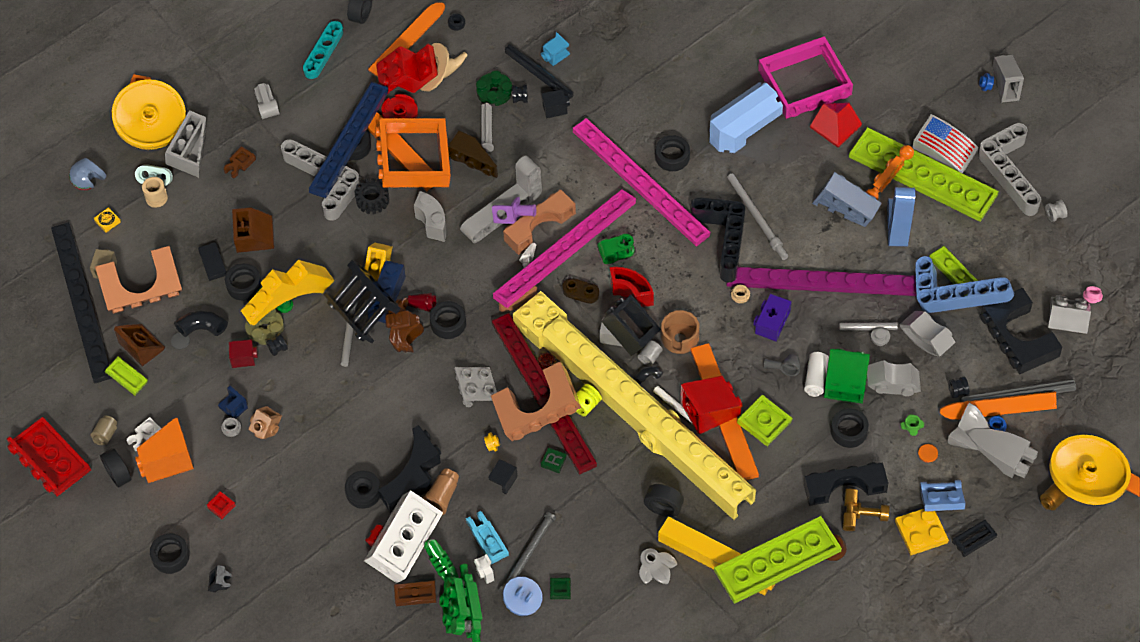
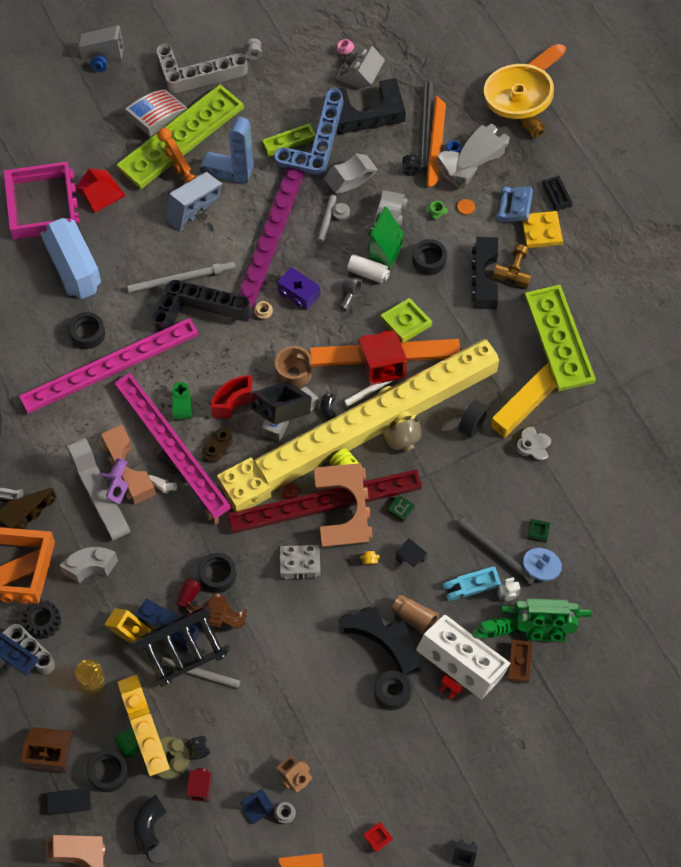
camera: 80 degrees left, 5 degrees up
(324, 244) = (90, 676): none -> clear yellow wheel
(629, 443) = (403, 435): none -> dark tan cylinder

